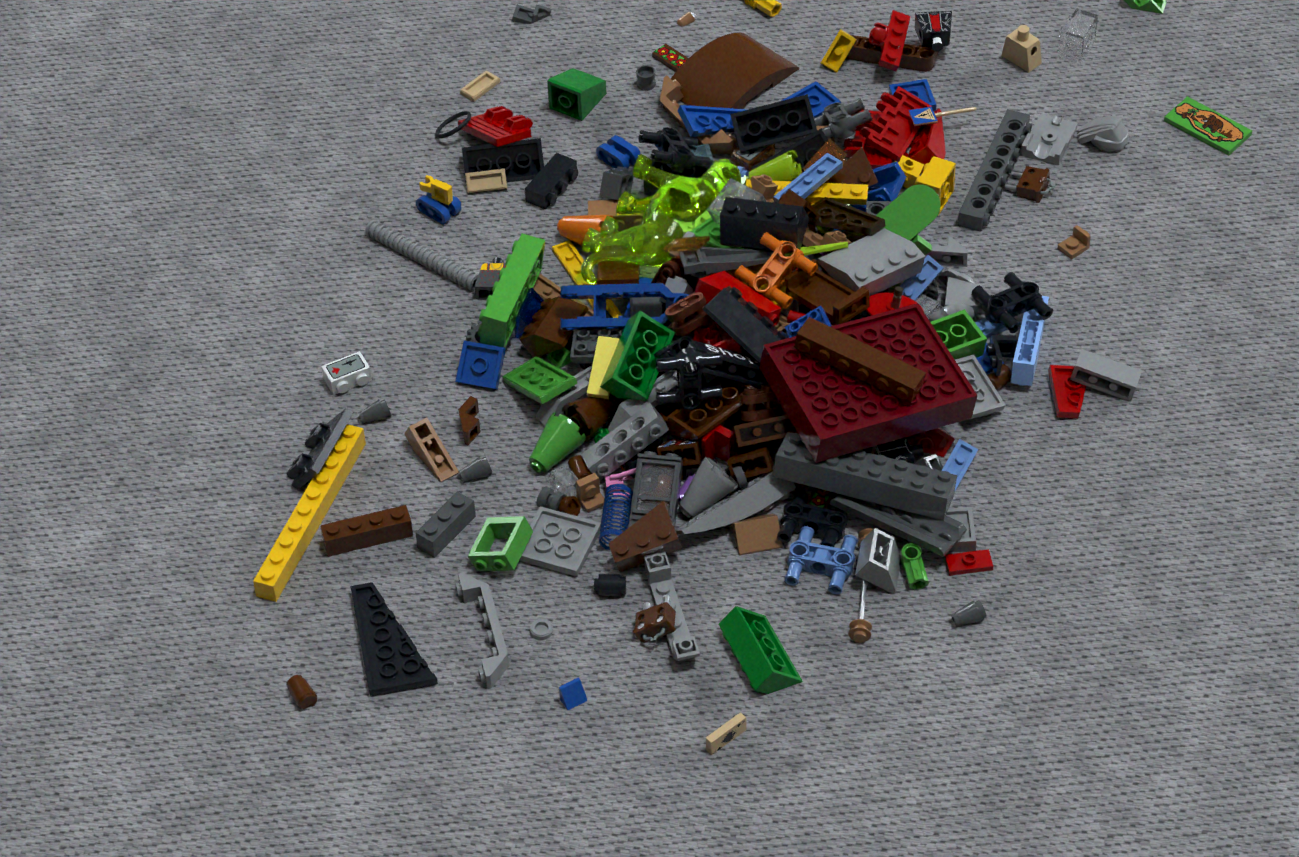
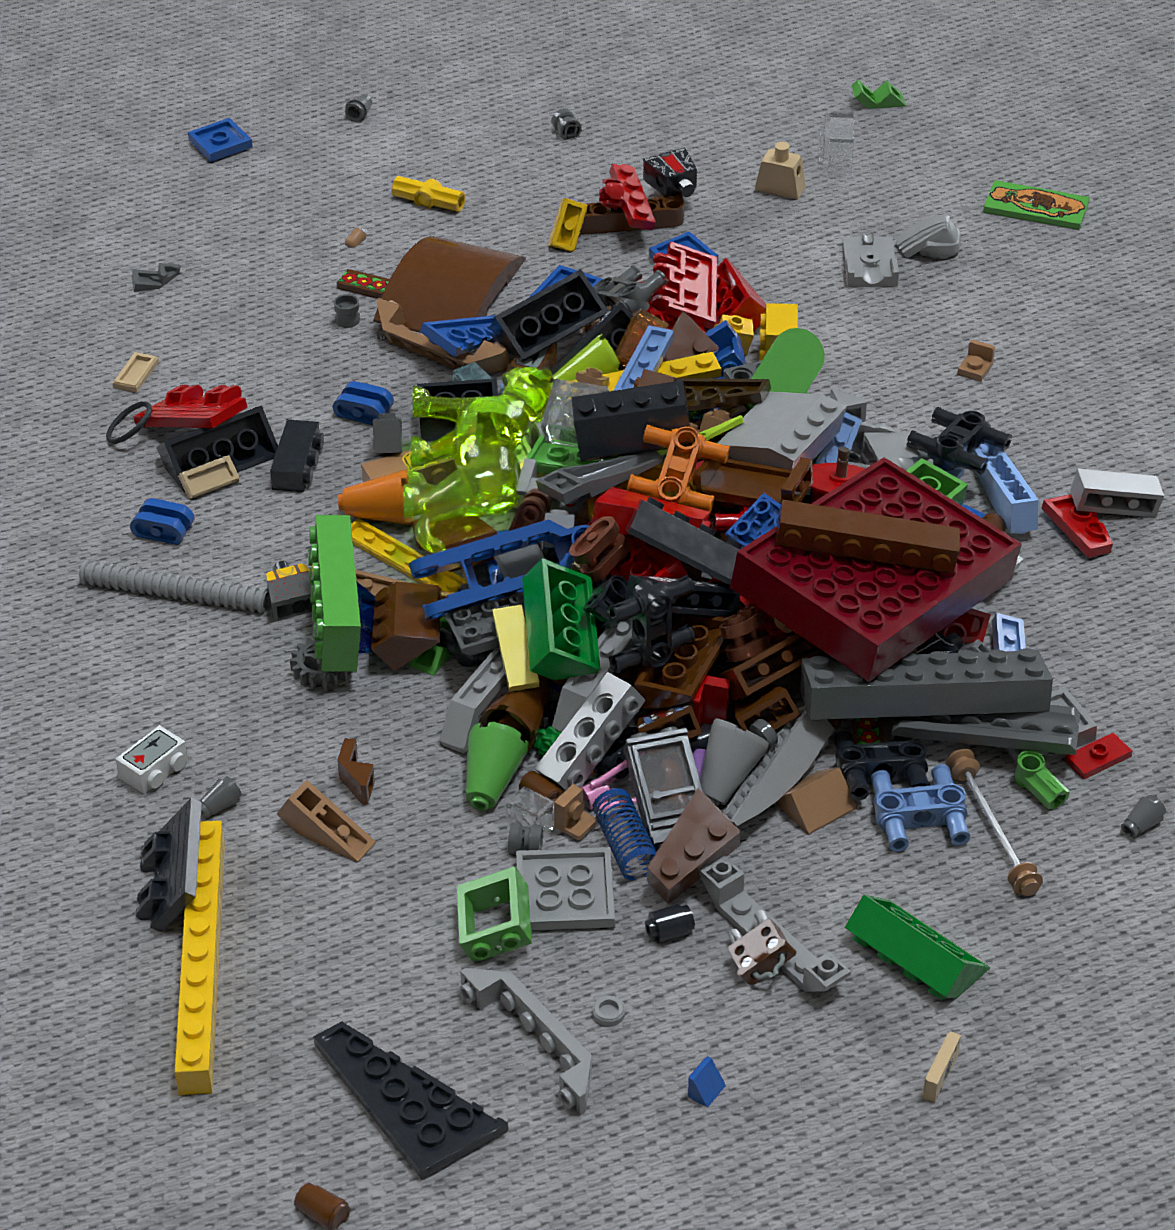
camera: 25 degrees left, 5 degrees down
(366, 530) = (295, 955): reddish brown brick -> none
(439, 190) = (161, 498): yellow plate -> none
(445, 524) = (401, 913): dark grey brick -> none
(475, 470) = (401, 830): dark grey cone -> none
(480, 365) = (333, 696): blue plate -> none
(539, 380) = (427, 692): bright green tile -> none
(570, 505) = (554, 837): reddish brown tile -> none
(575, 93) = (269, 349): green slope -> none
(674, 150) = (447, 373): black piece -> none
(686, 244) = (540, 470): clear orange piece -> none
(879, 560) = (997, 783): light grey slope -> none
(927, 116) = (721, 267): piece -> none
(994, 170) = (833, 308): dark grey brick -> none
(1000, 347) = (981, 498): black bracket -> none
(1031, 183) = (884, 311): reddish brown piece -> none

